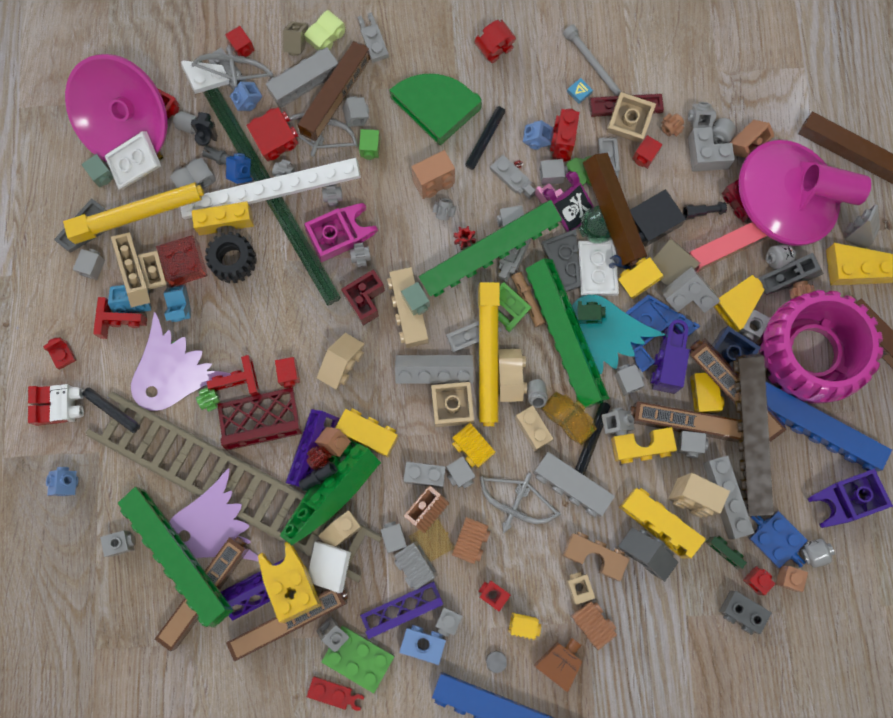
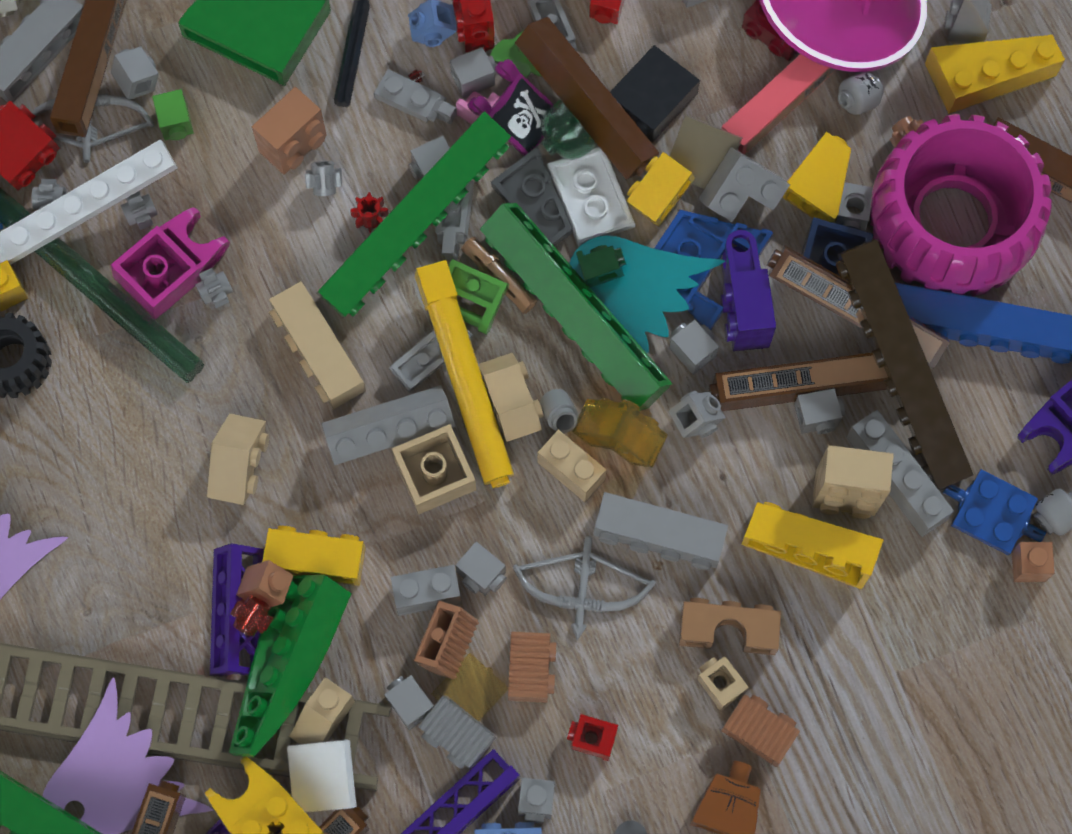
camera: 20 degrees left, 5 degrees down
(207, 399) = (43, 585): bright green gear -> none
(237, 378) = (78, 540): red bracket -> none
(265, 433) = (141, 615): dark red fence -> none
(287, 372) = (157, 503): red brick -> none
(318, 476) = (259, 643): black pin -> none
(360, 294) = (235, 346): dark red brick -> none
(415, 299) = (324, 325): sand green brick -> none
(473, 446) = (486, 522): yellow brick -> none
(524, 626) = (655, 764): yellow brick -> none
(591, 442) = (666, 457): black axle -> none
(617, 259) = (617, 174): dark blue hand -> none
(649, 553) = (808, 593): dark grey brick -> none
(661, 443) = (725, 452): yellow arch -> none
(691, 211) = (705, 67): black piece -> none
(705, 394) = (816, 330): yellow brick -> none
(734, 557) = (934, 559): dark green plate -> none
(745, 612) = (980, 636): dark grey brick -> none
(759, 581) = (986, 581): red brick -> none
(784, 277) = (899, 100): dark grey slope -> none

